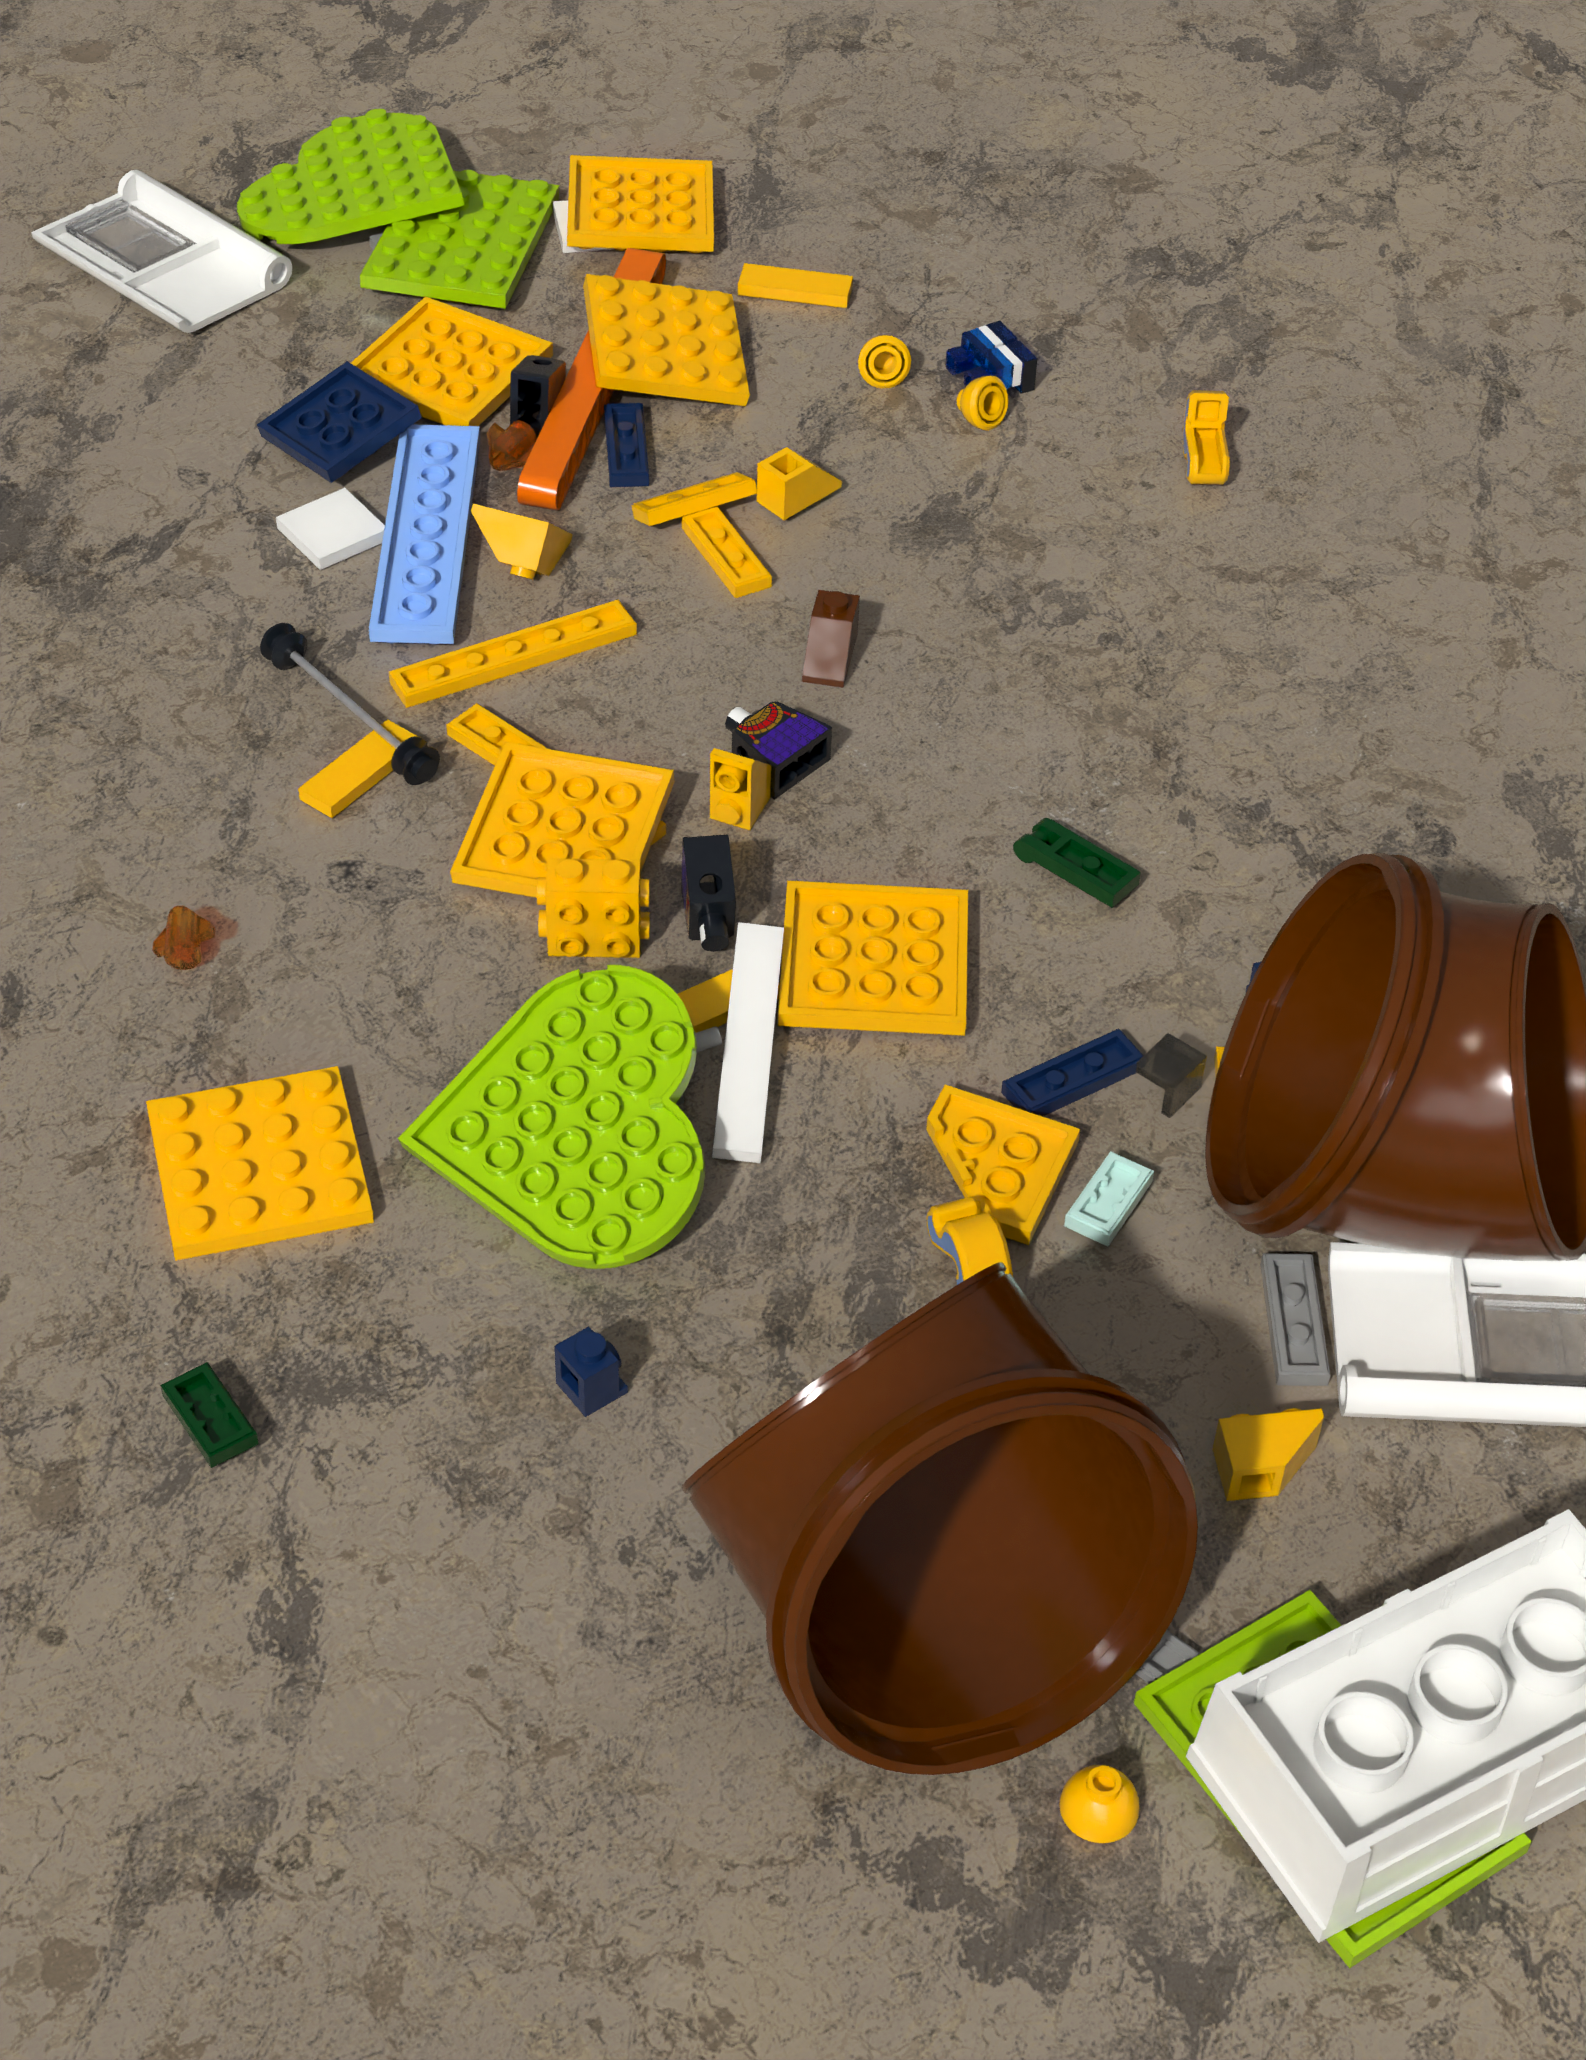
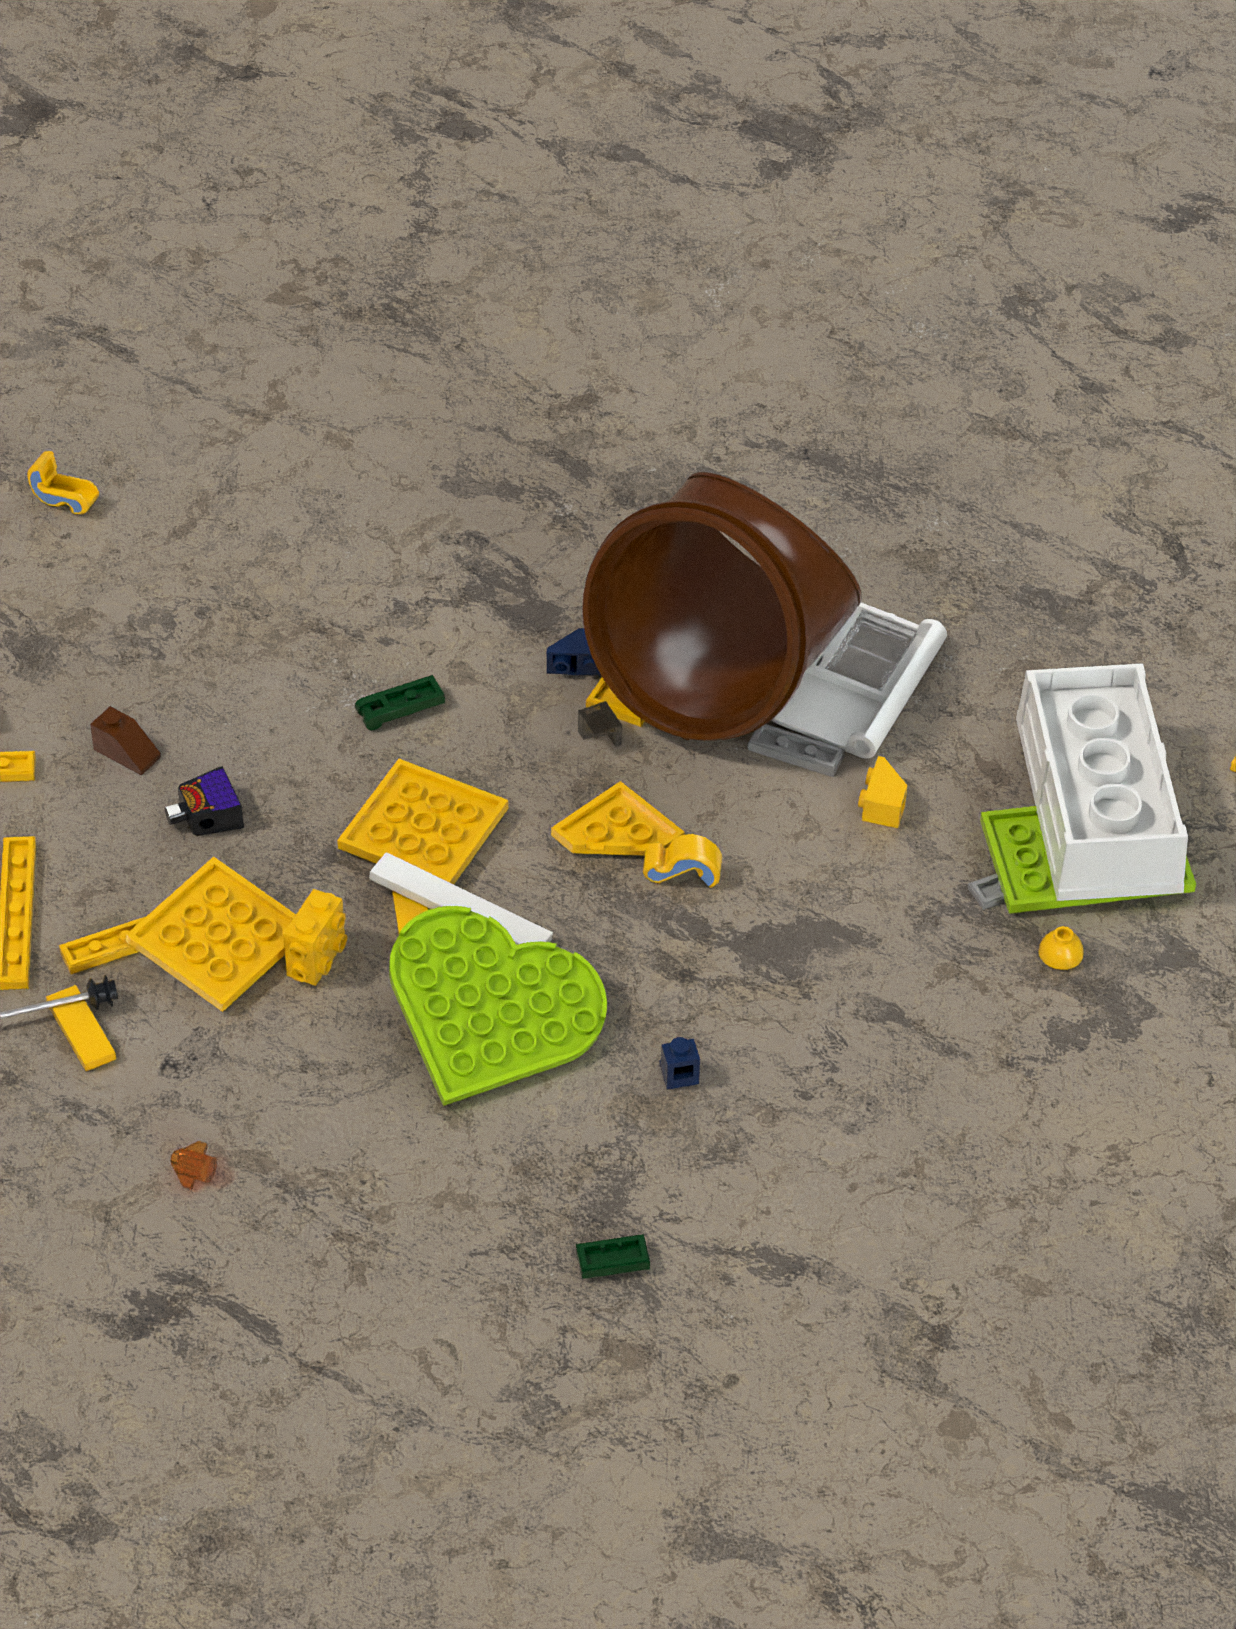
camera: 65 degrees left, 0 degrees up
(258, 1163) = (414, 1181): yellow plate -> none
(708, 905) = (332, 873): black torso -> none
(738, 788) = (241, 833): yellow slope -> none
(956, 1536) = (893, 909): reddish brown piece -> none
(1073, 1074) = (567, 771): dark blue tile -> none
(1109, 1198) = (673, 790): light aqua plate -> none

